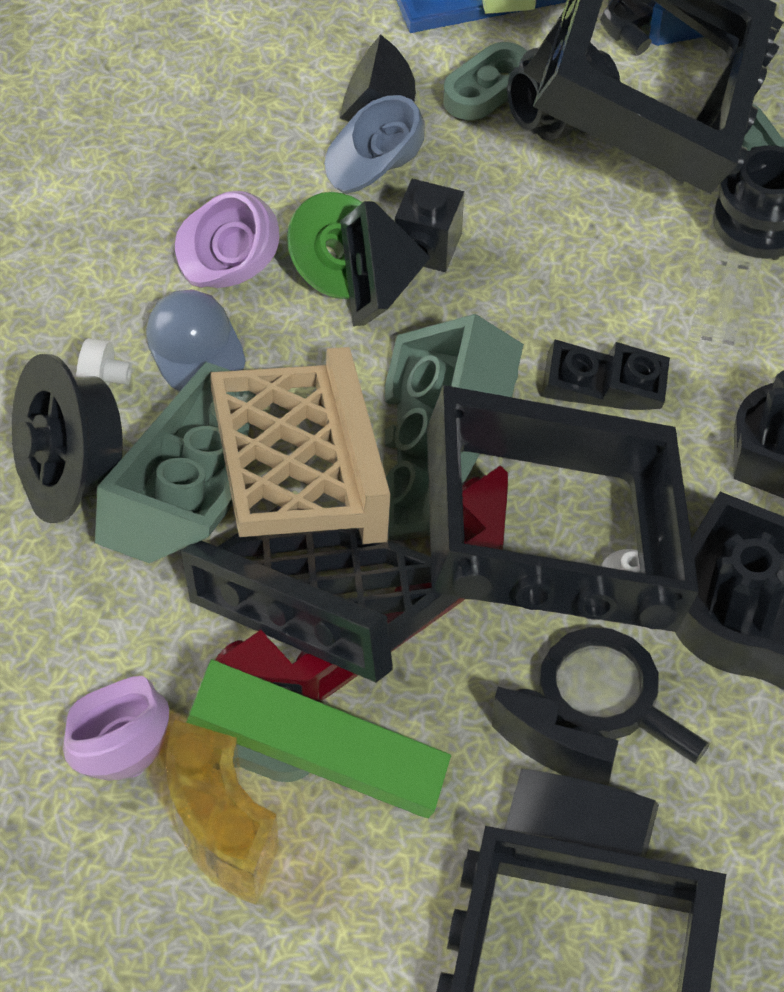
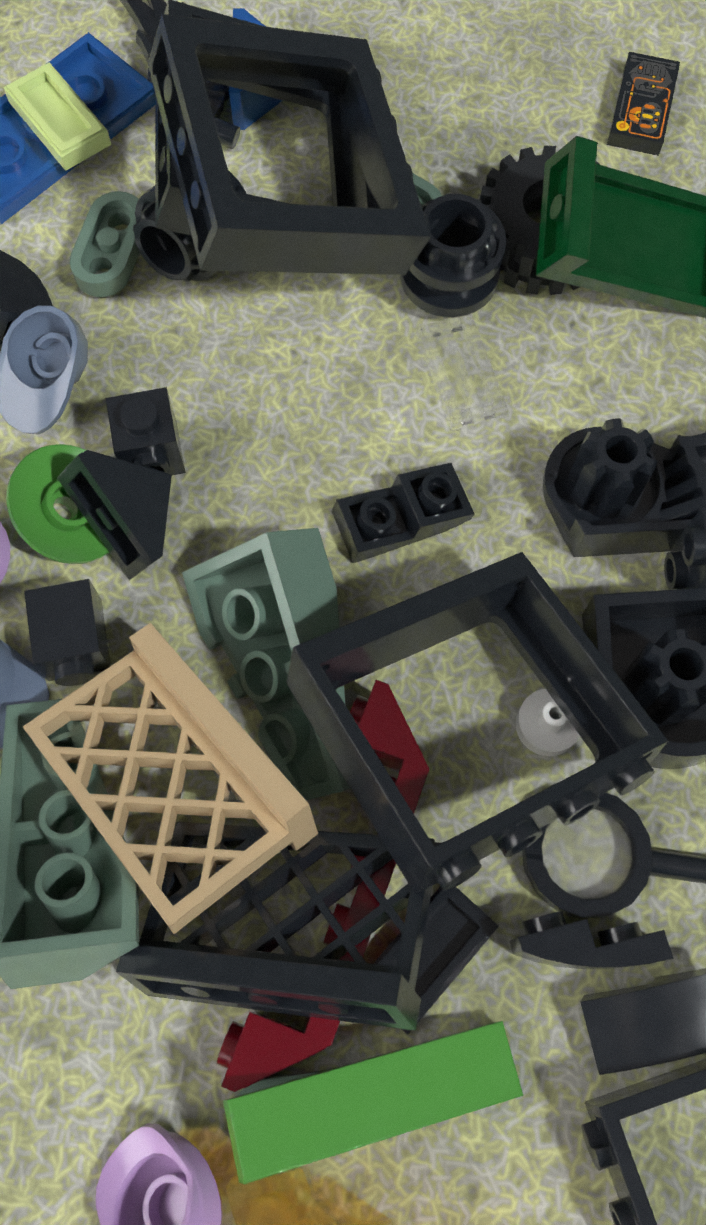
camera: 30 degrees left, 15 degrees up
(283, 328) = (67, 632): none -> black brick
(424, 687) = (451, 939): none -> black tile

